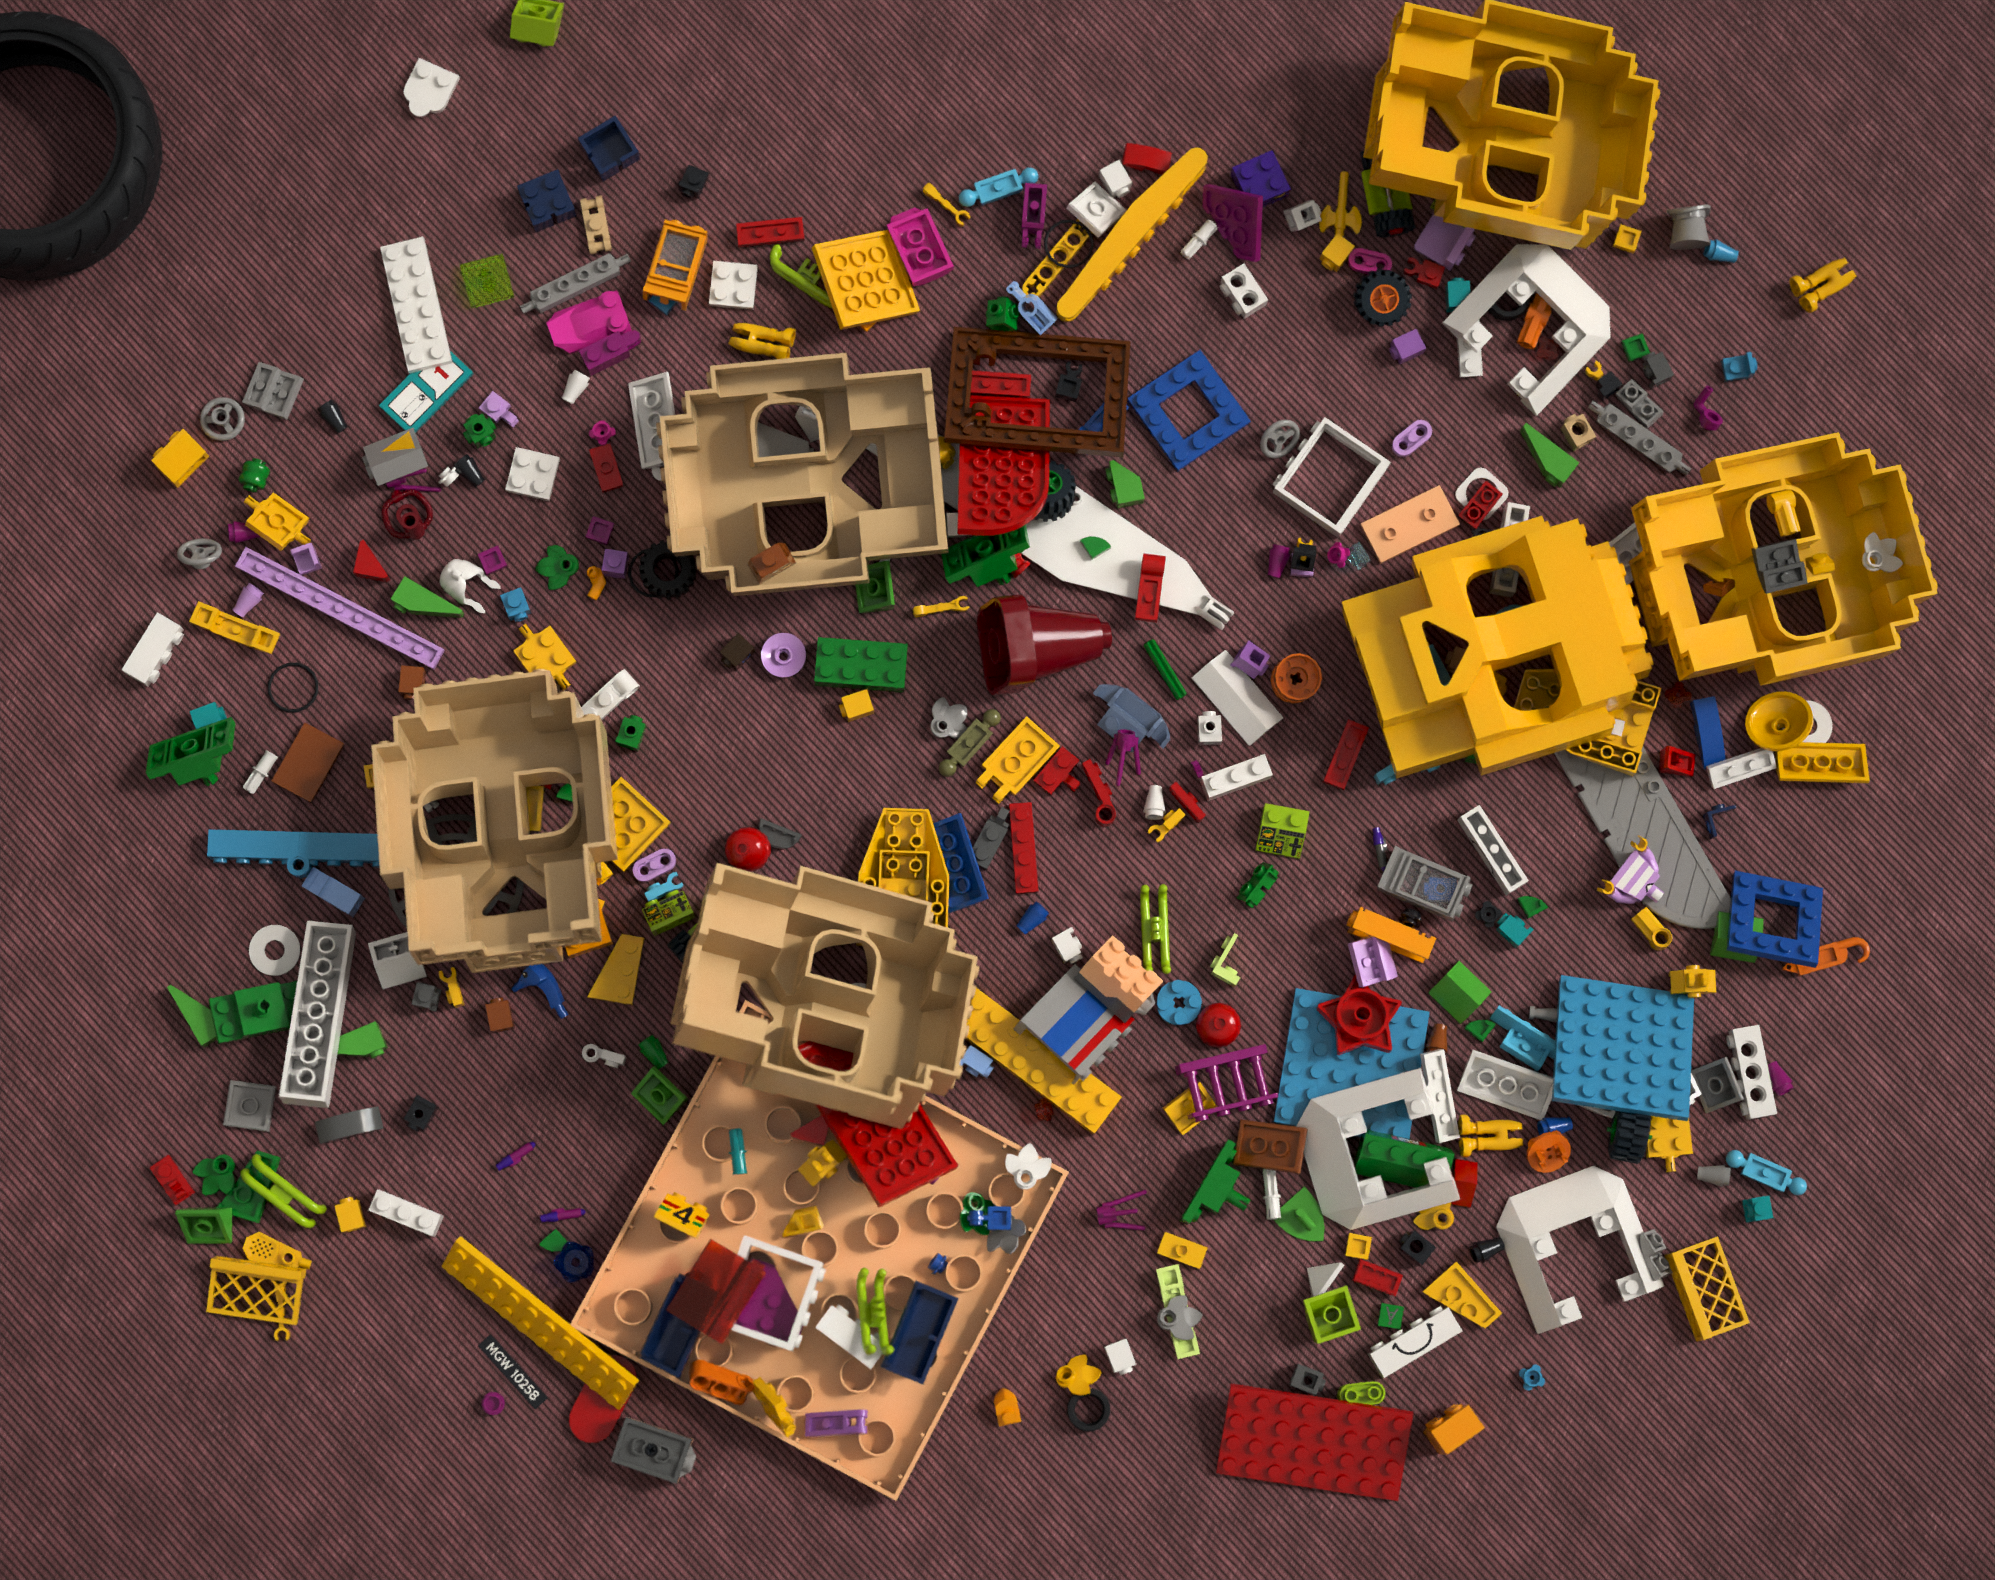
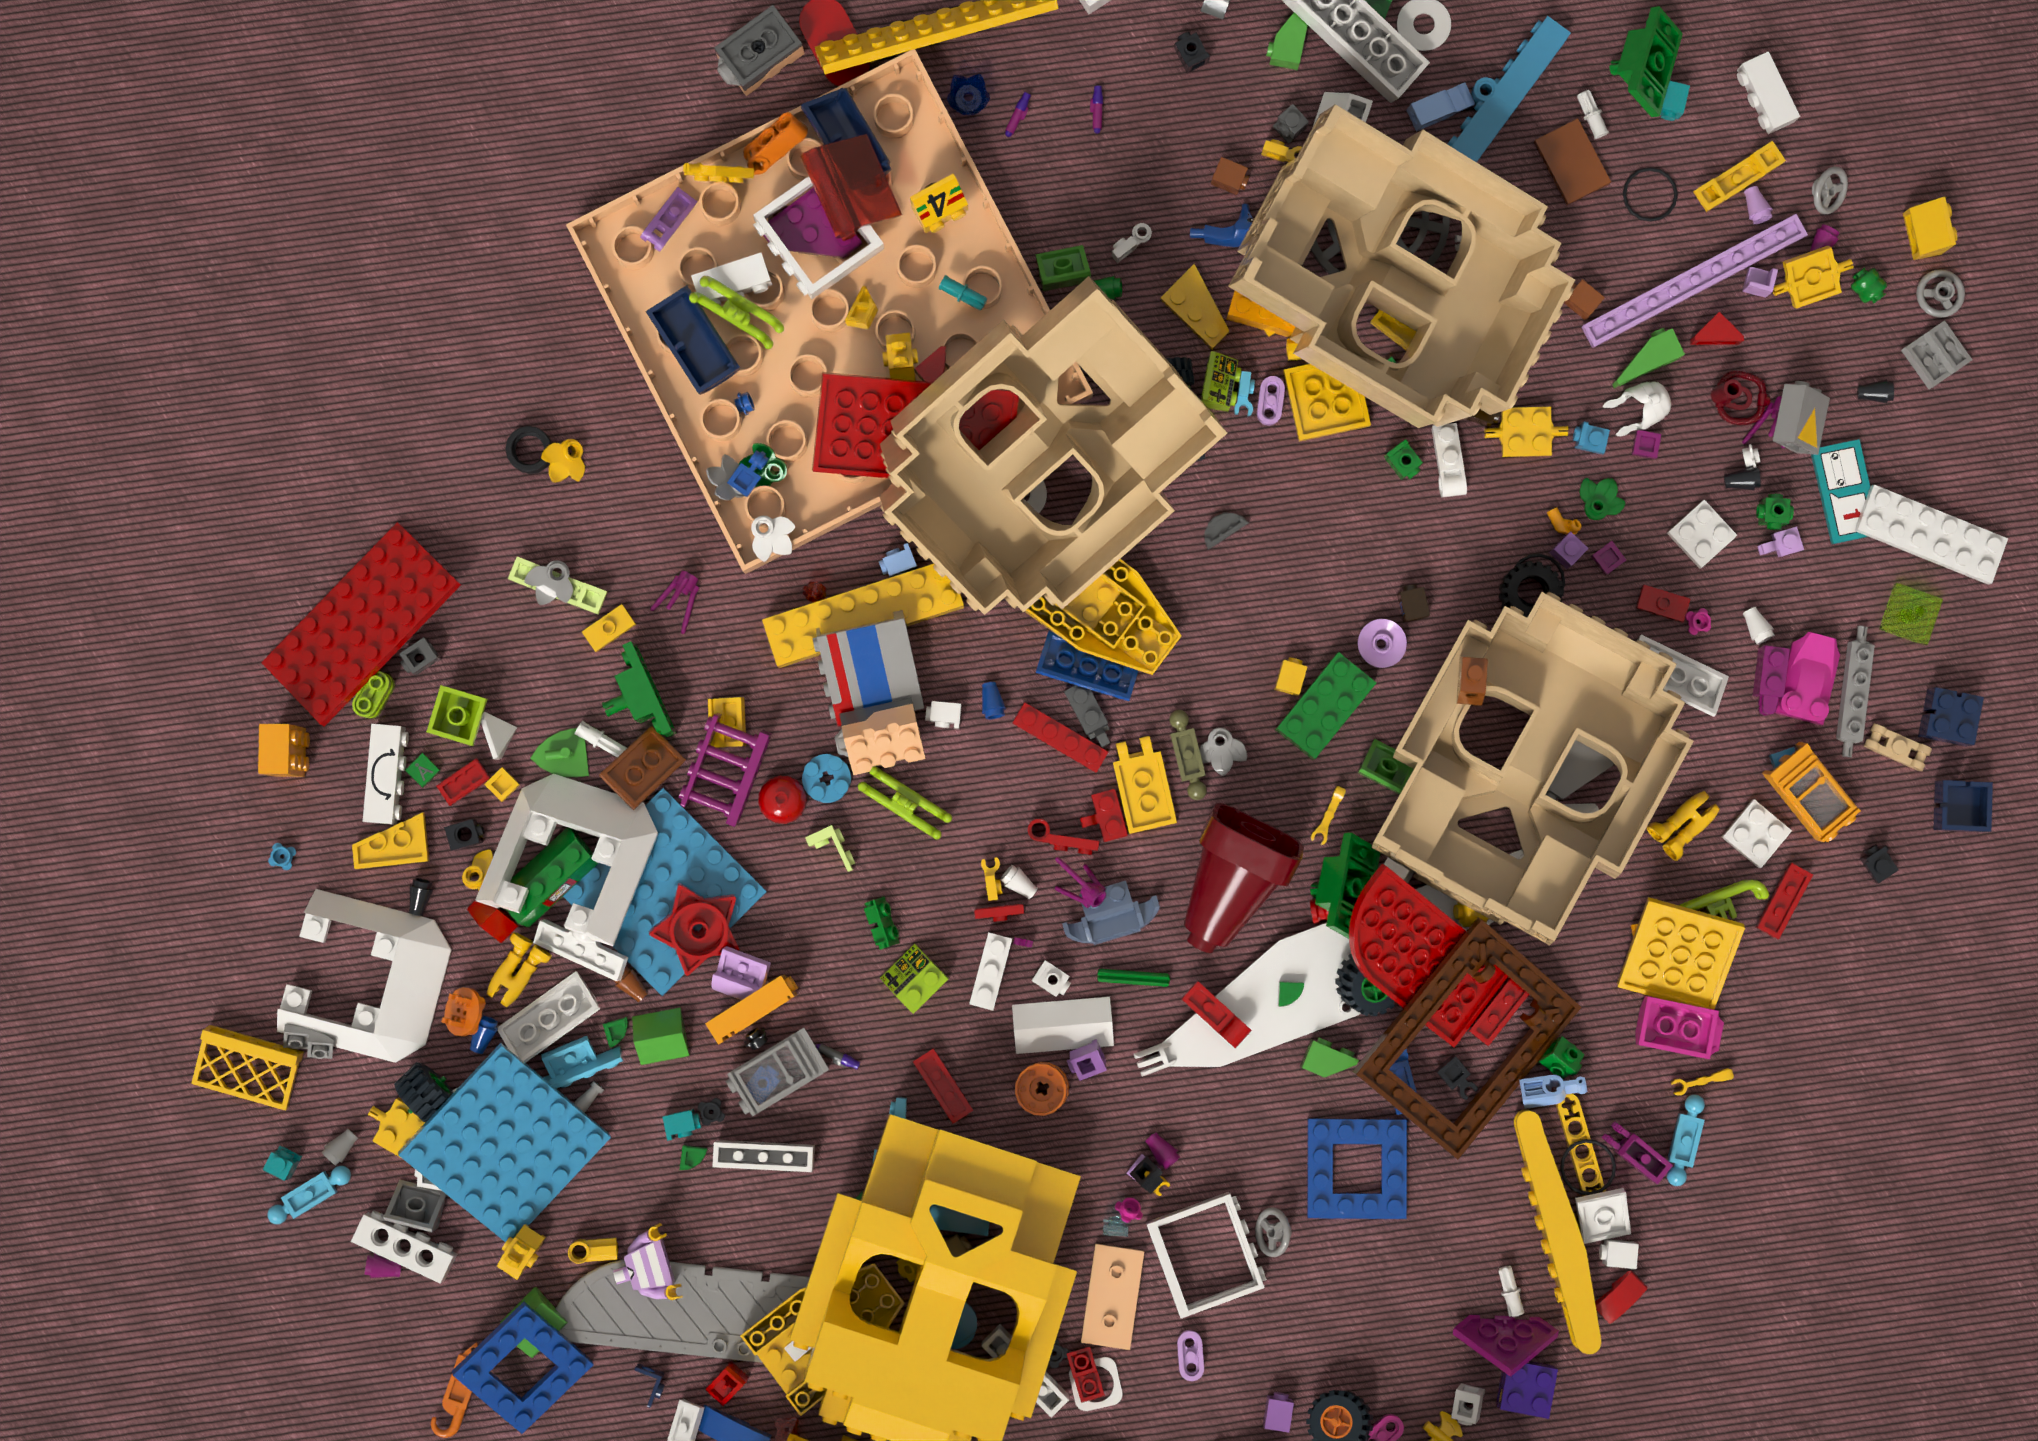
camera: 135 degrees right, 5 degrees up
(554, 1241) = (999, 92): green tile -> none
(747, 849) = (1228, 491): red cylinder -> none
(1006, 1407) = (582, 380): light orange plate -> none
(1120, 1357) = (555, 508): white brick -> none
(1248, 289) = (1432, 1304): white brick -> none
(1336, 253) = (1411, 1410): yellow brick -> none

